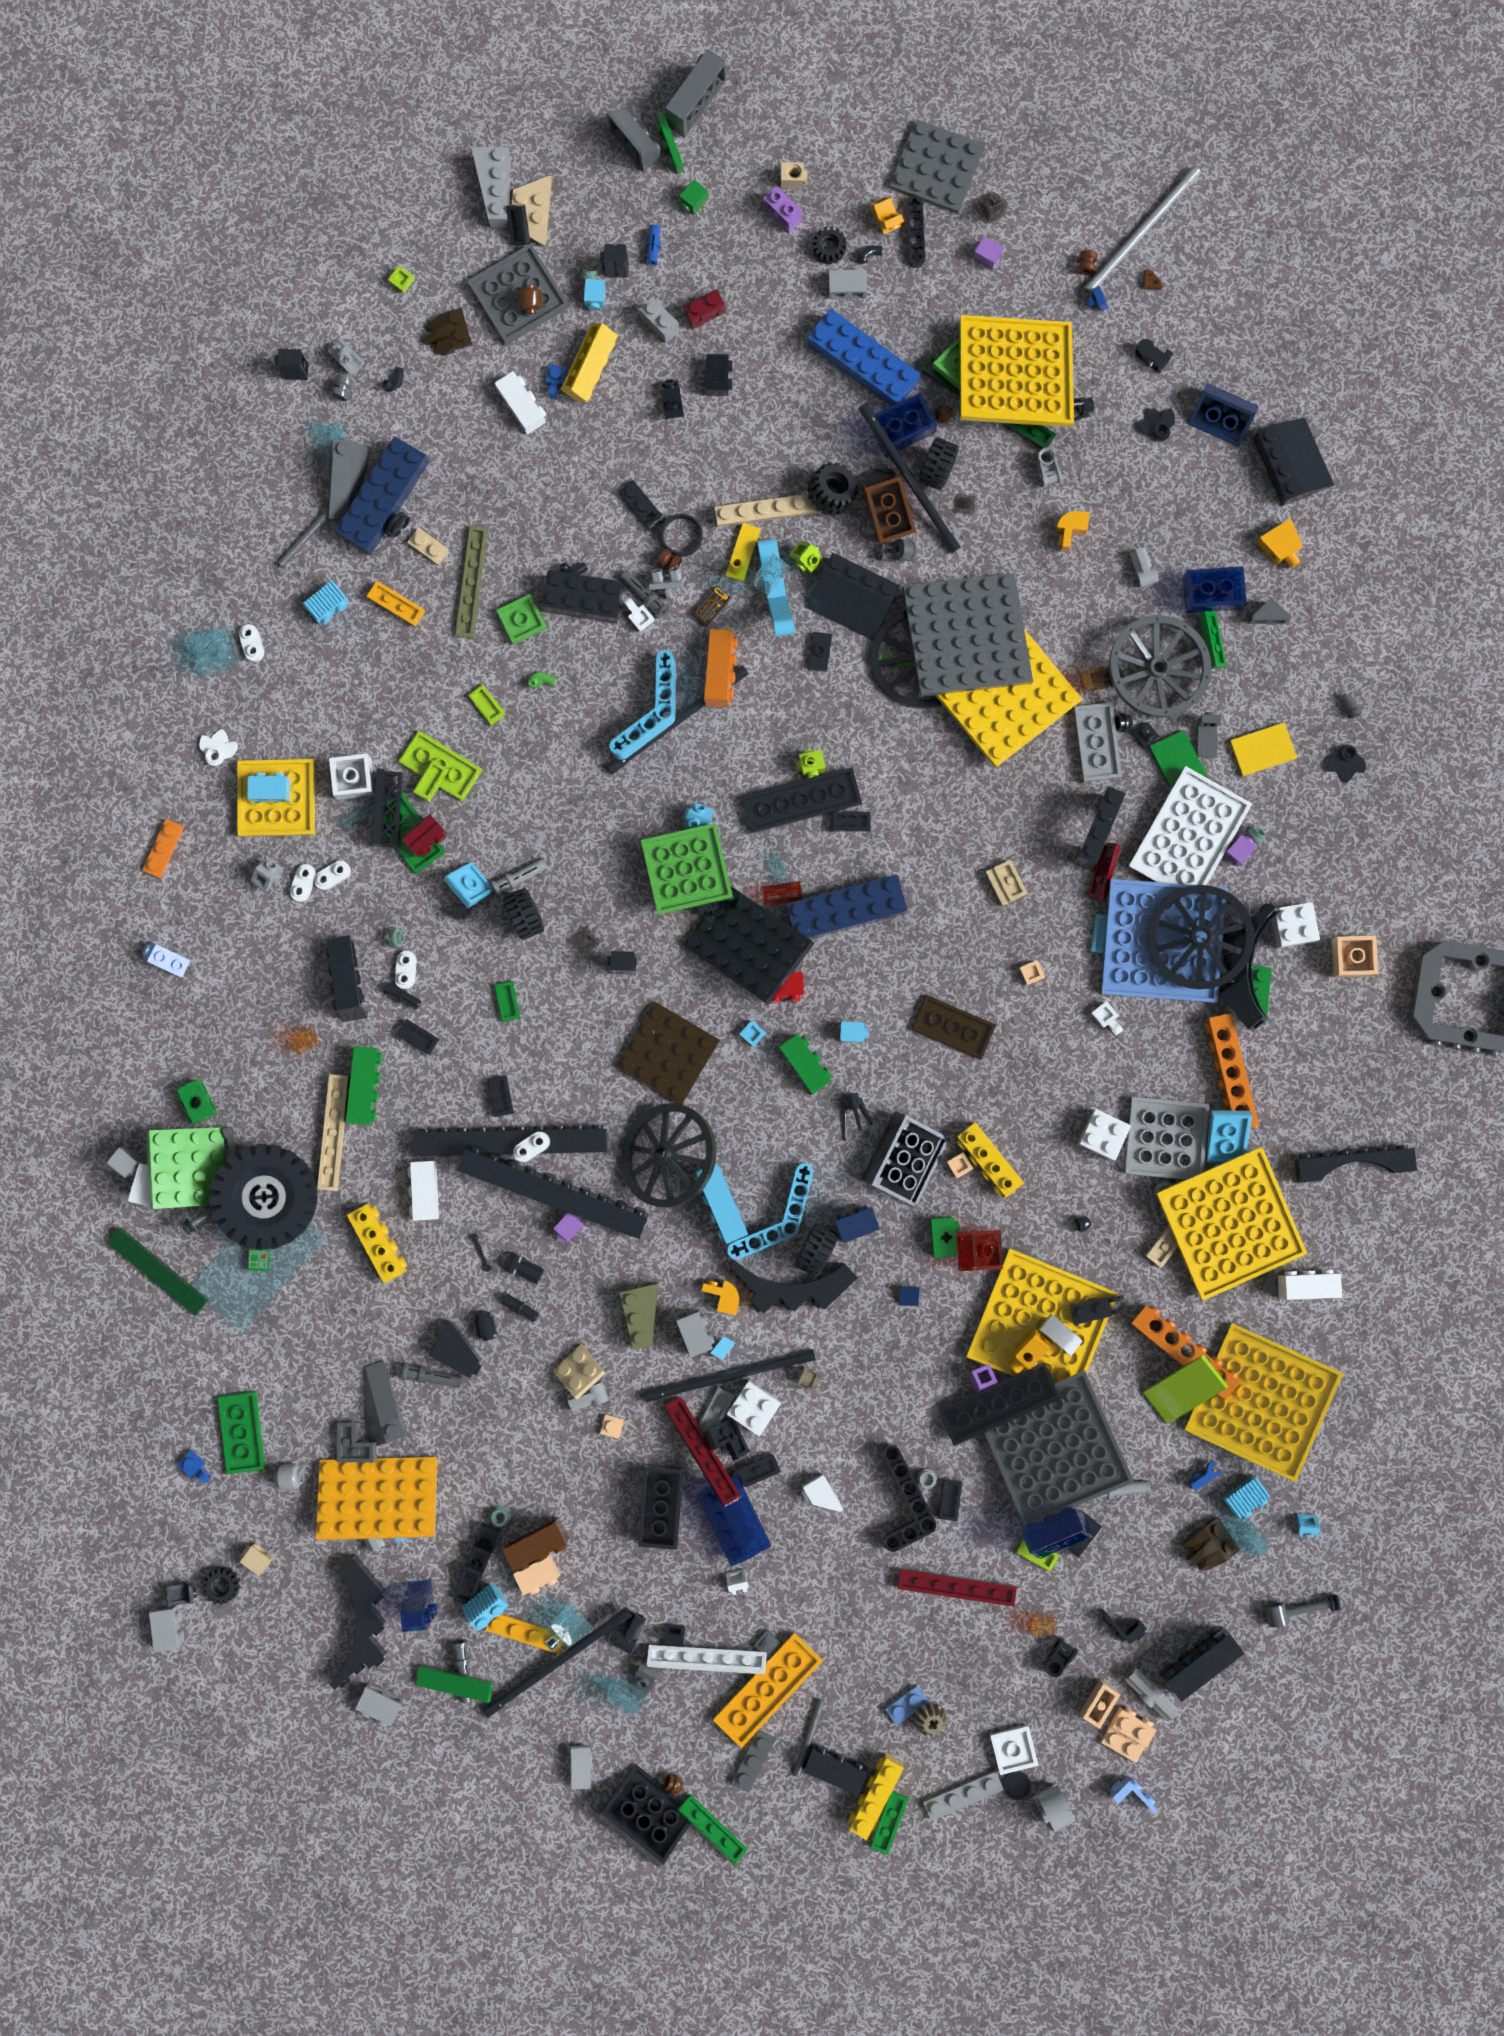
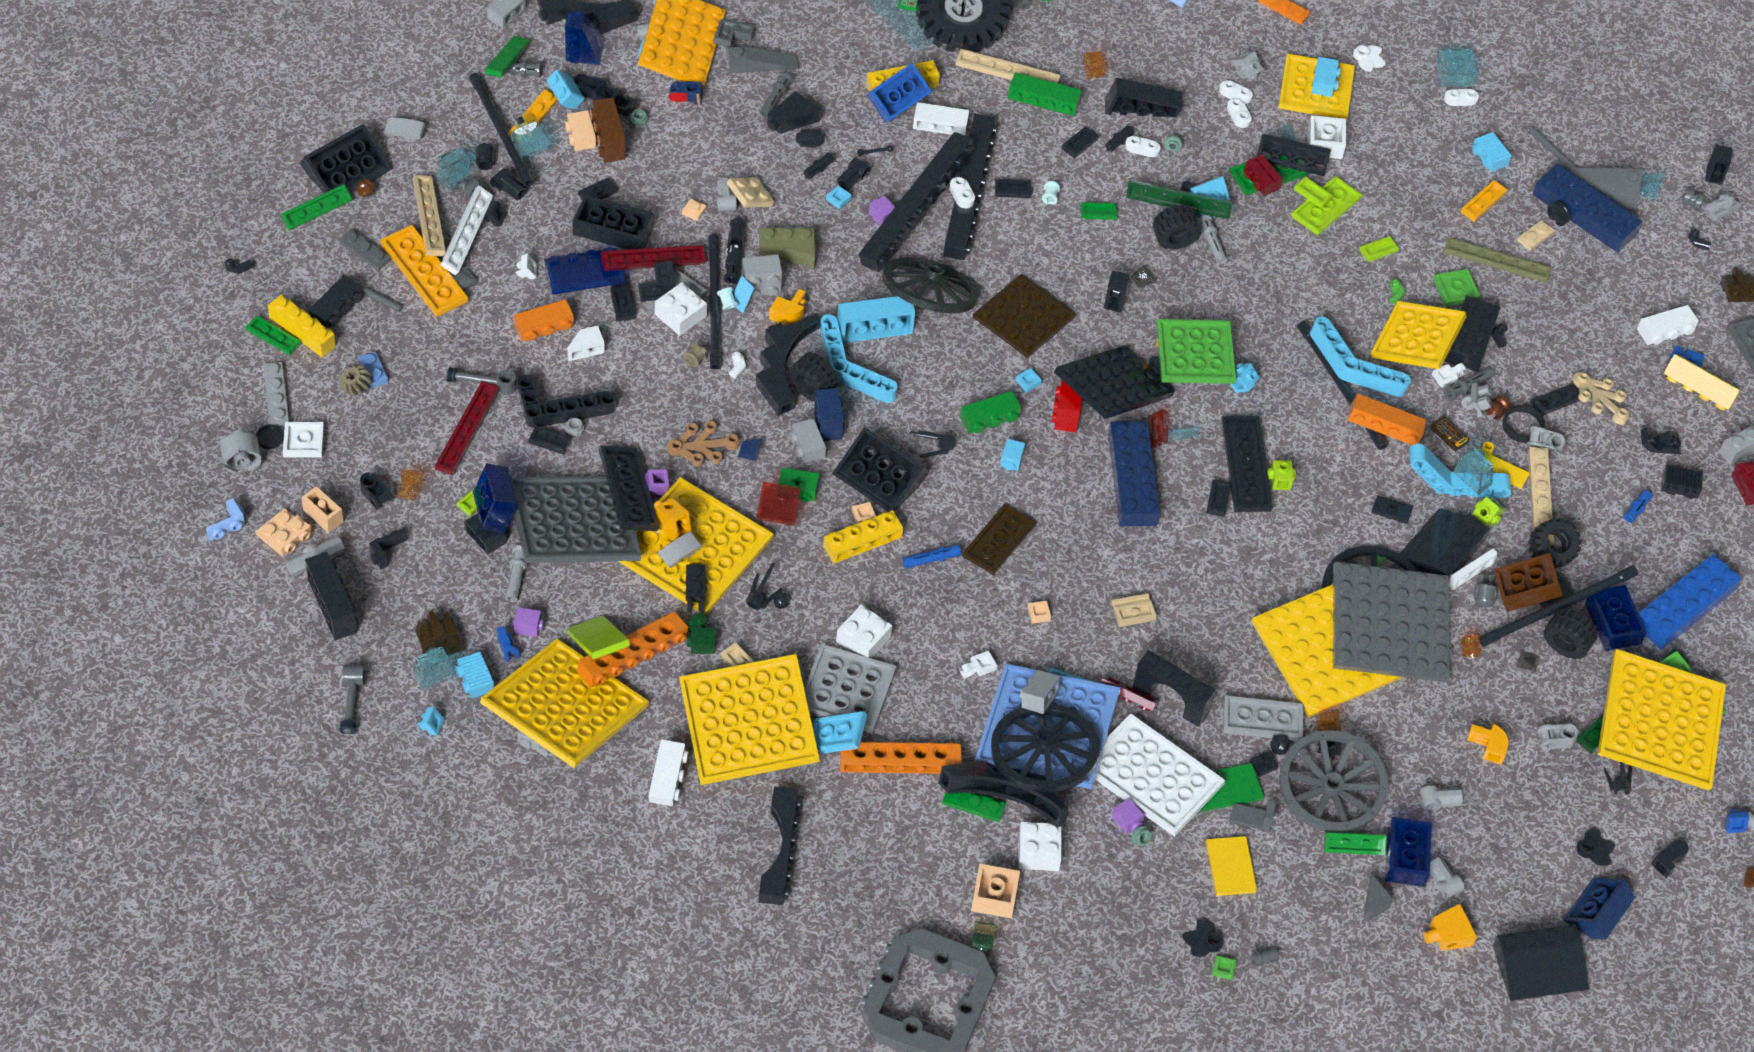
camera: 90 degrees right, 30 degrees down
(409, 1242) = (899, 93): none -> blue brick
(453, 1473) = (686, 92): none -> dark blue leg
(480, 918) = (1171, 197): none -> dark green tile
(497, 1055) = (1051, 190): none -> light aqua bush
(559, 1277) = (838, 197): none -> medium azure plate
(598, 1669) = (484, 156): none -> black brick
(603, 648) = (1418, 335): none -> yellow plate
(613, 1535) = (599, 190): none -> black plate
(628, 464) = (1584, 382): none -> tan plant
(673, 1368) = (735, 250): none -> black piece
(697, 1705) = (429, 215): none -> tan plate
(704, 510) = (1543, 439): none -> light grey piece
(728, 1362) = (727, 298): none -> light aqua bush
(757, 415) = (1637, 506): none -> blue pin
(804, 1331) = (739, 364): none -> white arm
(804, 1545) = (543, 320): none -> orange brick
(812, 1888) = (232, 267): none -> black arm
(872, 562) = (1472, 569): none -> white tile
(887, 1239) = (808, 441): none -> light grey brick
(895, 1620) = (505, 379): none -> dark grey piece
(917, 1346) = (701, 445): none -> medium nougat plant
(967, 558) = (1470, 646): none -> clear orange wheel
(993, 1088) = (939, 554): none -> blue pin
(1087, 1247) = (756, 598): none -> black plant
(1141, 952) = (1040, 691): none -> light grey brick
(1150, 1291) = (701, 638): none -> dark green brick
(1174, 1462) = (528, 622): none -> medium lavender brick
(1232, 552) = (1446, 881): none -> light grey piece
(1369, 740) = (1224, 967): none -> bright green tile
(1401, 959) = (983, 936): none -> clear green slope

